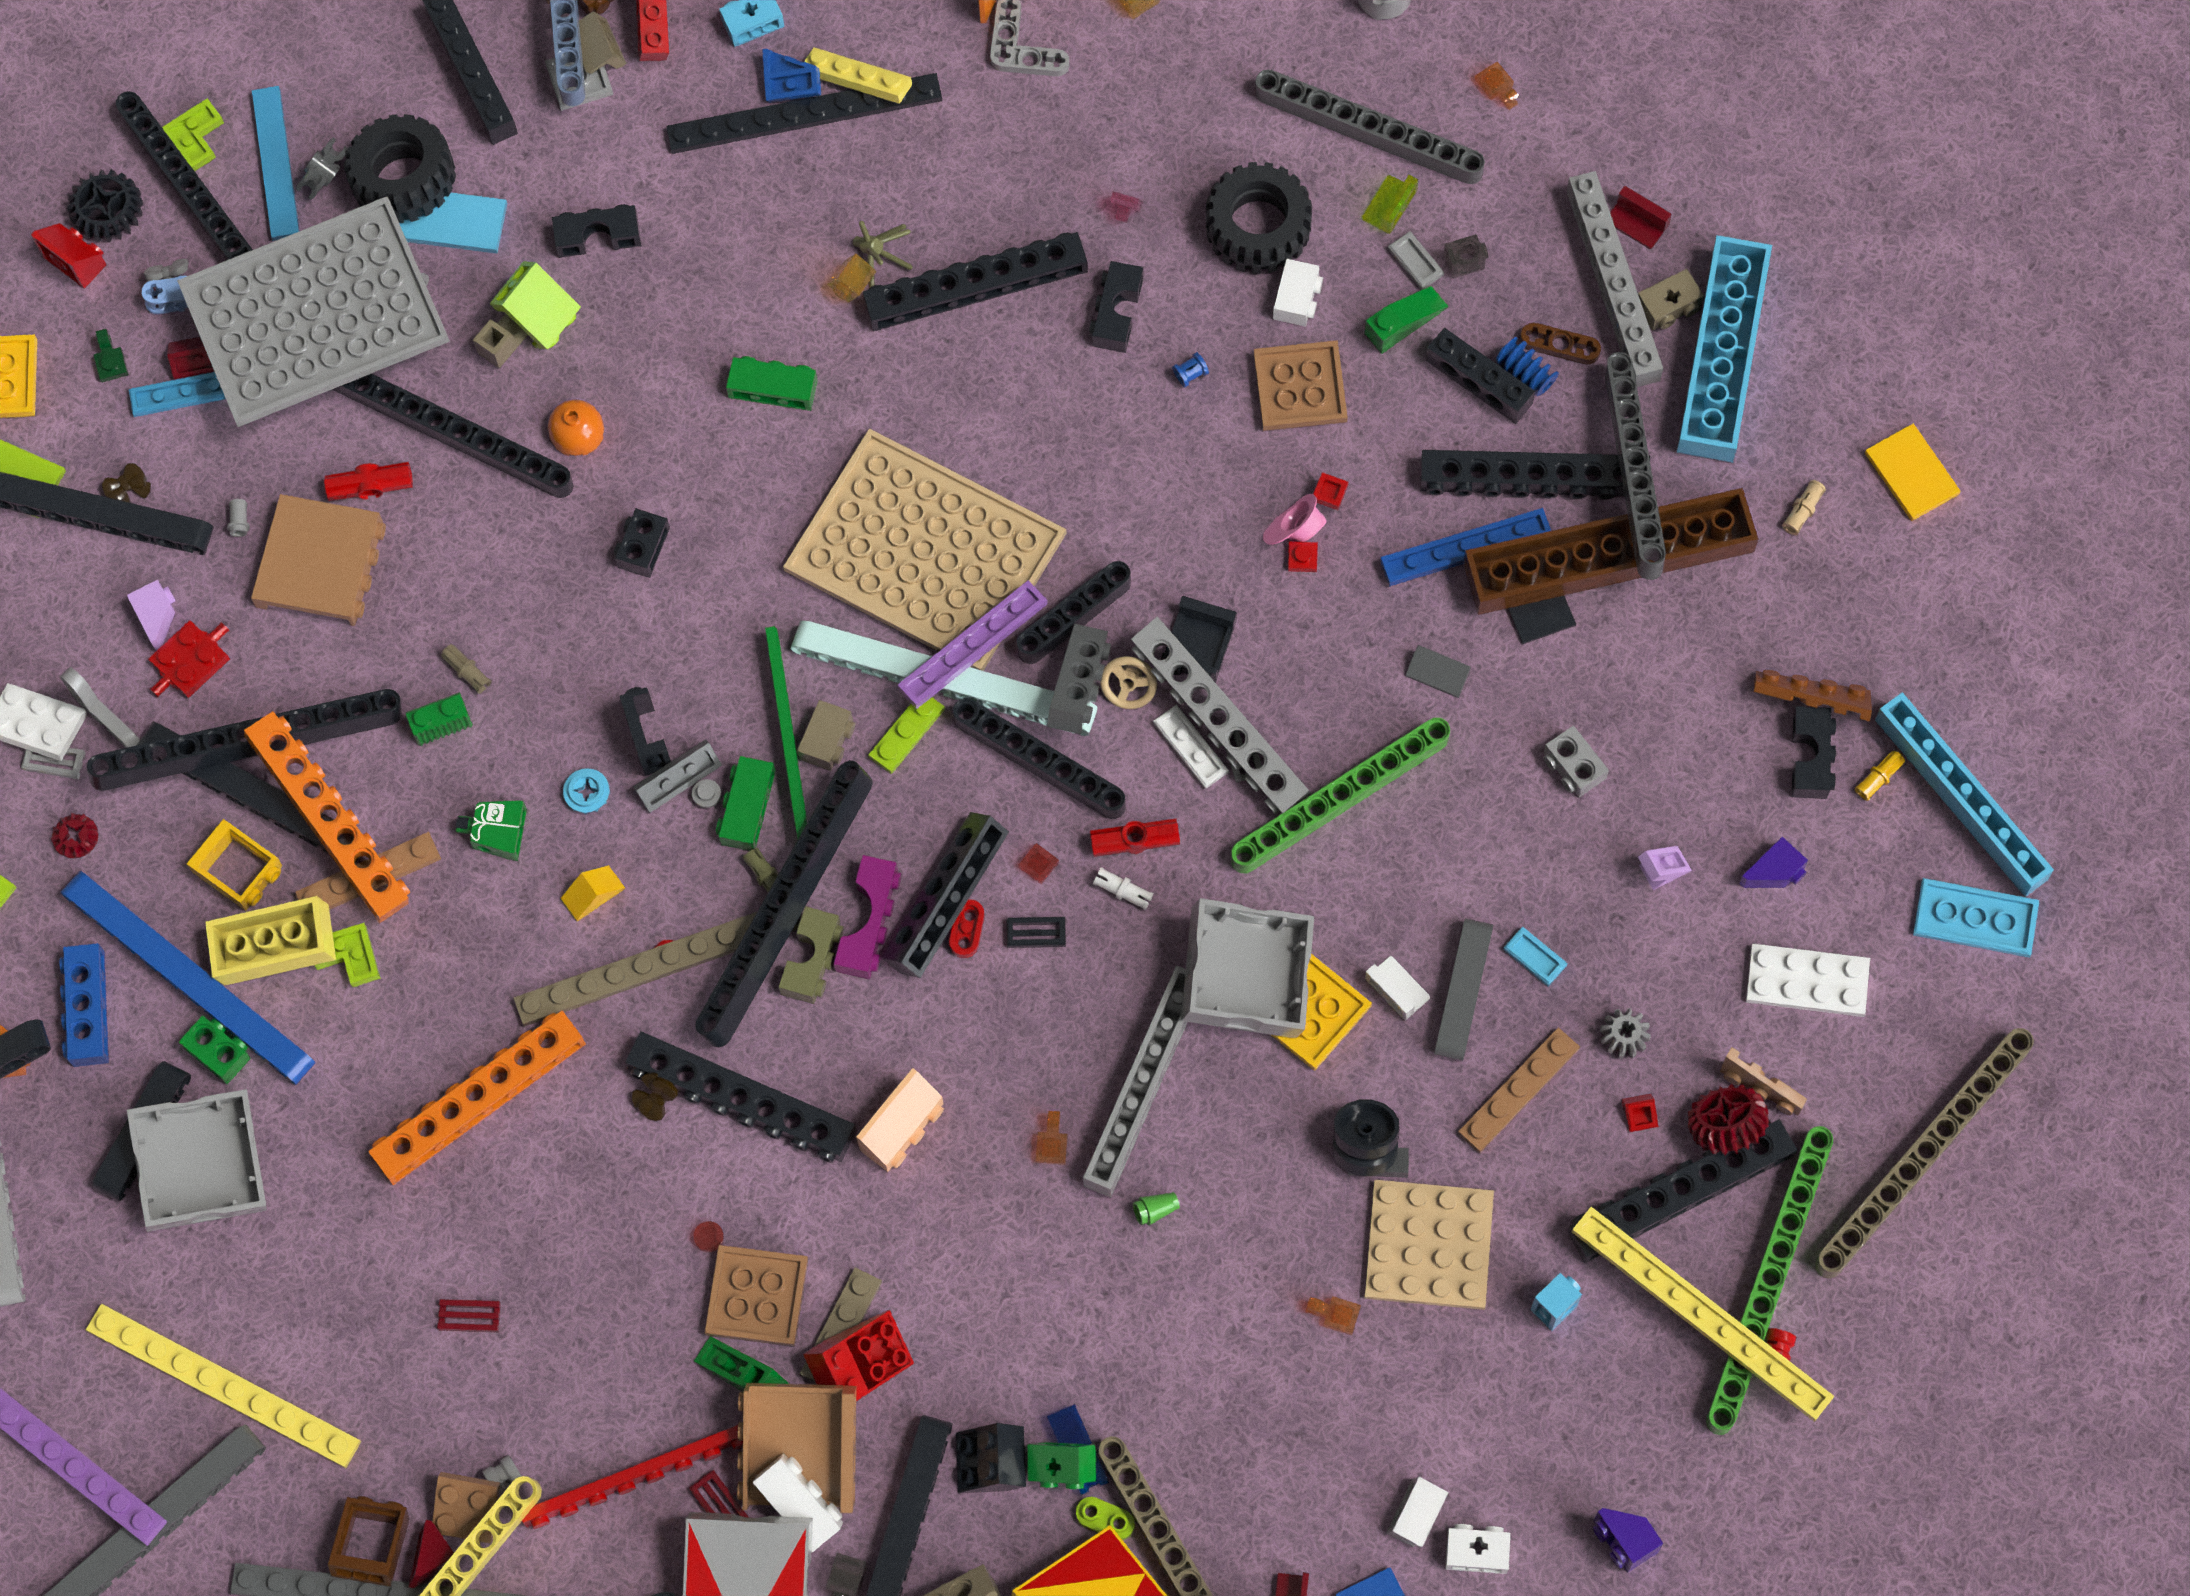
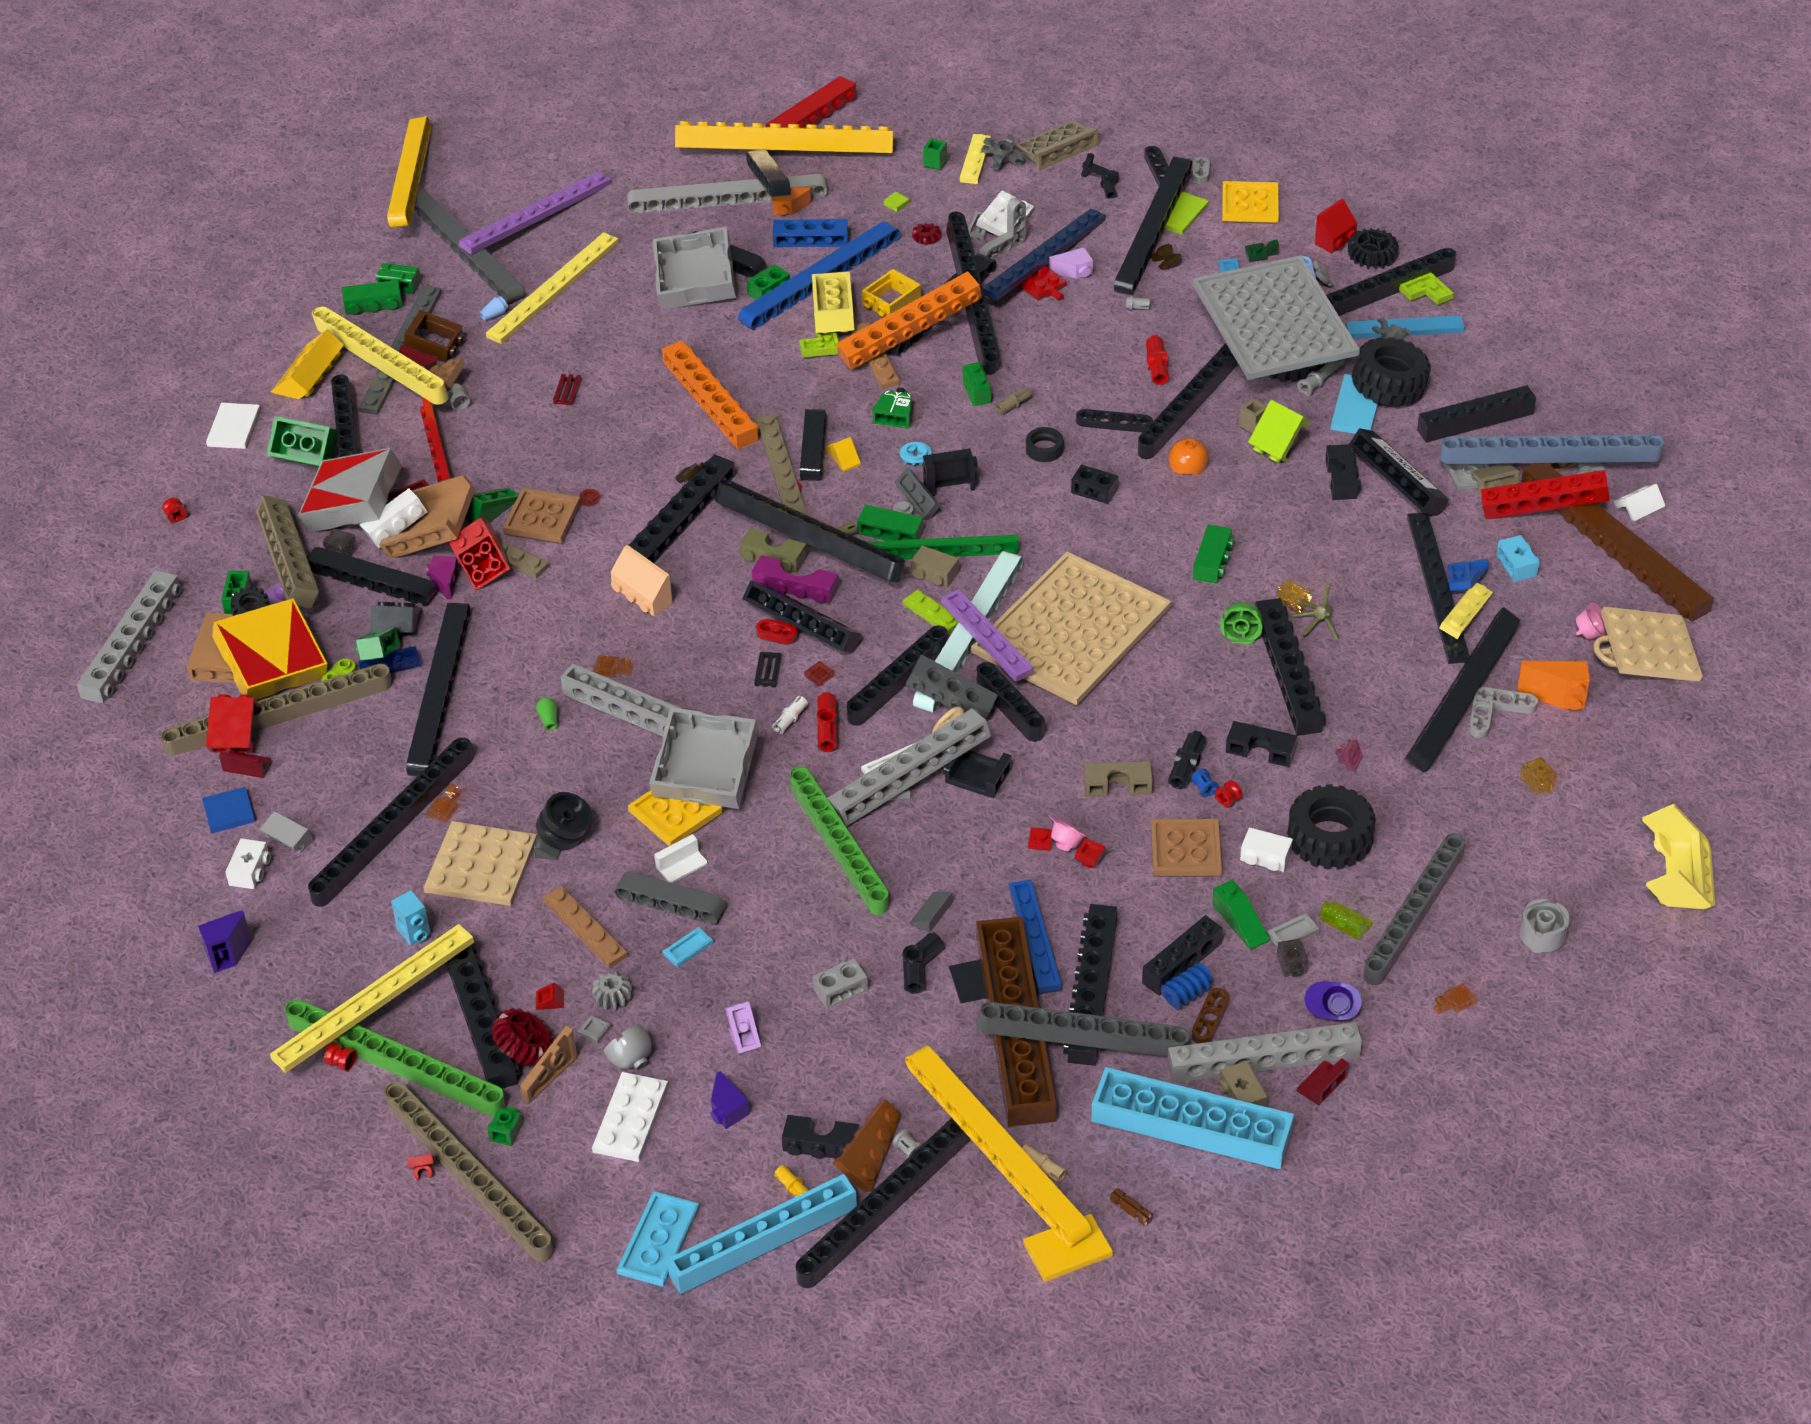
camera: 95 degrees right, 25 degrees down
(136, 652) = (1040, 256): none -> dark blue plate
(286, 1465) = (494, 308): none -> light blue cone
(318, 558) = (1100, 334): medium nougat panel -> none
(503, 531) = (1114, 420): none -> black beam
(562, 638) = (1044, 454): none -> black tyre
(576, 932) = (812, 444): none -> black beam
(597, 158) = (1399, 472): none -> black brick
(898, 1409) = (444, 574): none -> magenta slope
(902, 332) = (1242, 619): none -> bright green cylinder
(997, 77) = (1462, 689): none -> black beam
(1117, 1366) = (438, 687): none -> black beam
(1153, 392) = (1187, 759): none -> black piece
(1199, 494) = (1134, 775): none -> dark tan arch
(1207, 340) = (1228, 793): none -> red wheel
(1387, 1385) = (390, 822): none -> black beam
(1532, 205) = (1333, 1000): none -> dark purple piece
(1545, 678) = (914, 959): none -> black piece
(1682, 1047) = (594, 1029): none -> light grey tile
(1718, 992) = (630, 1049): none -> light grey cylinder
(1804, 654) = (908, 1144): none -> light grey bush
(1806, 548) = (998, 1146): none -> yellow beam
(1846, 409) = (1131, 1206): none -> reddish brown axle
(1854, 1131) = (505, 1126): none -> green brick
(1885, 676) = (948, 1137): none -> black beam
(1922, 1210) = (421, 1162): none -> tile

